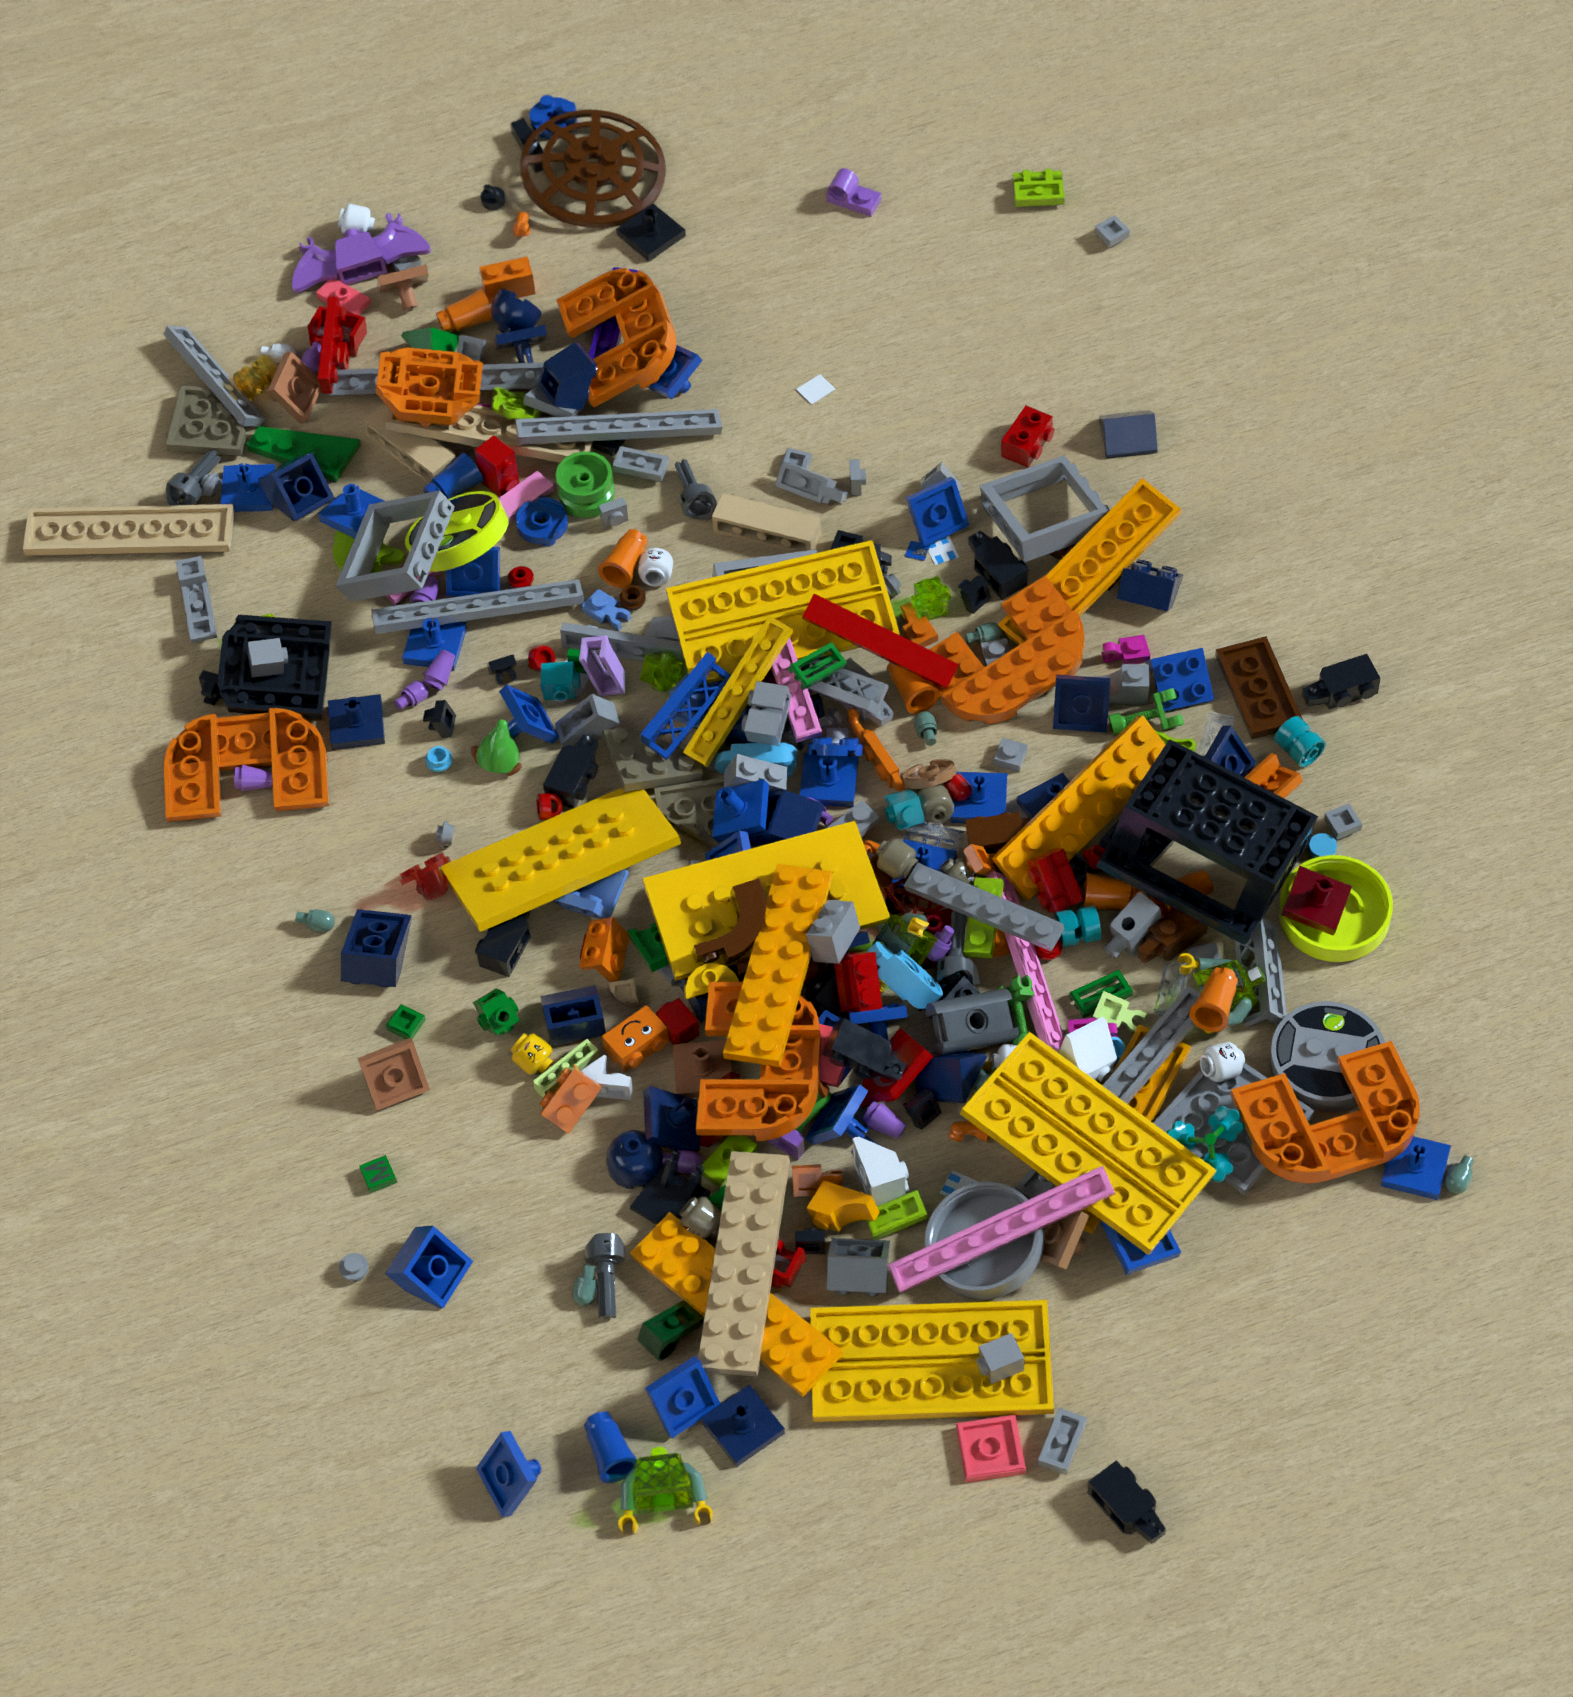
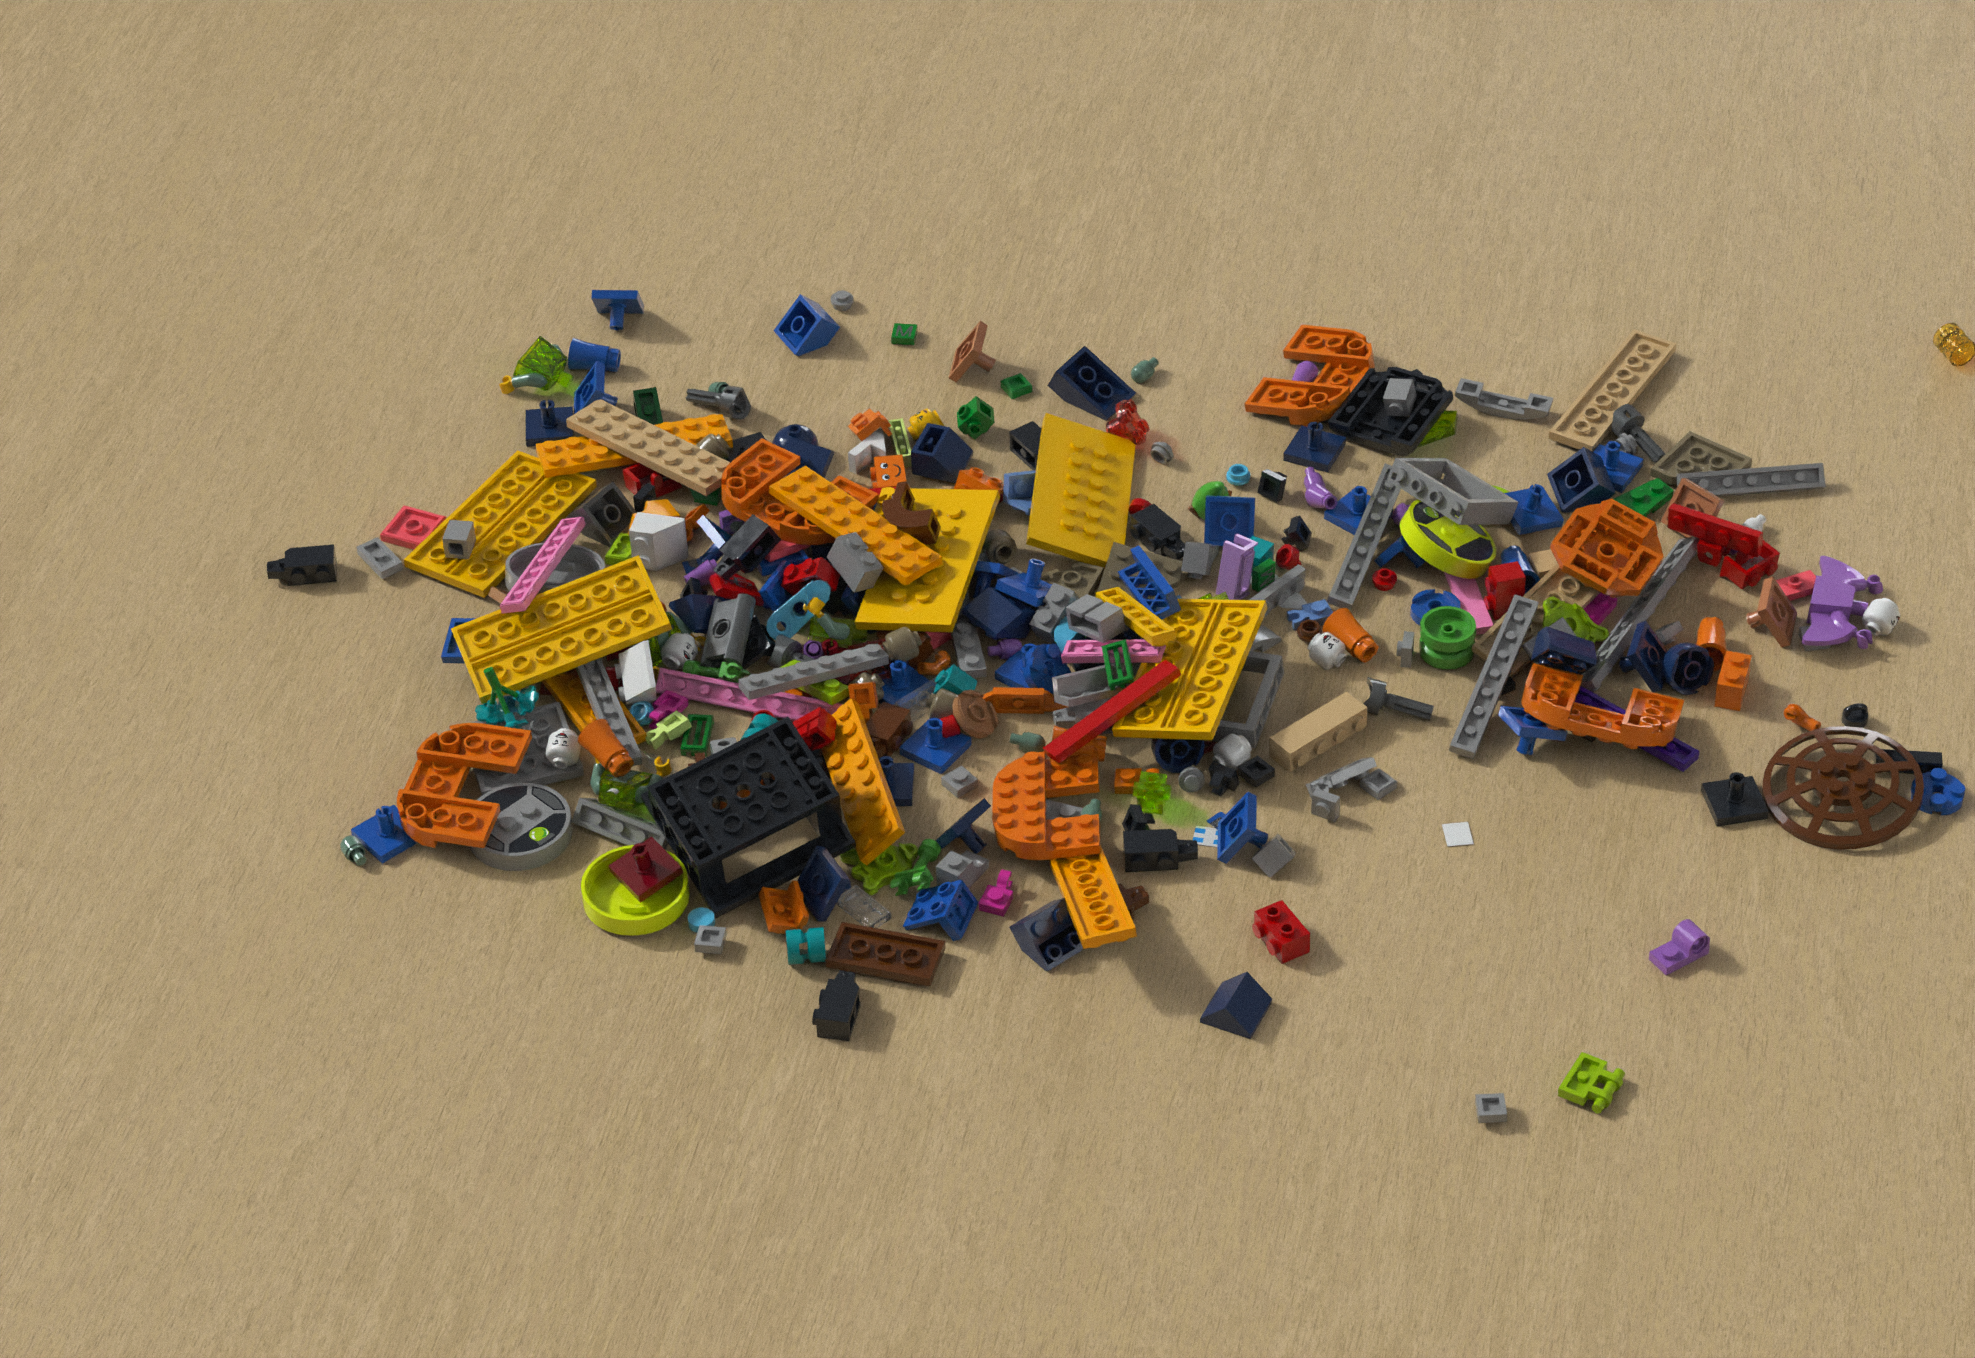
camera: 120 degrees right, 15 degrees down
(256, 377) = (1734, 505): clear yellow wheel -> none
(431, 339) = (1688, 610): green slope -> none
(640, 464) = (1450, 687): light grey plate -> none
(1051, 538) = (1191, 865): light grey window -> none

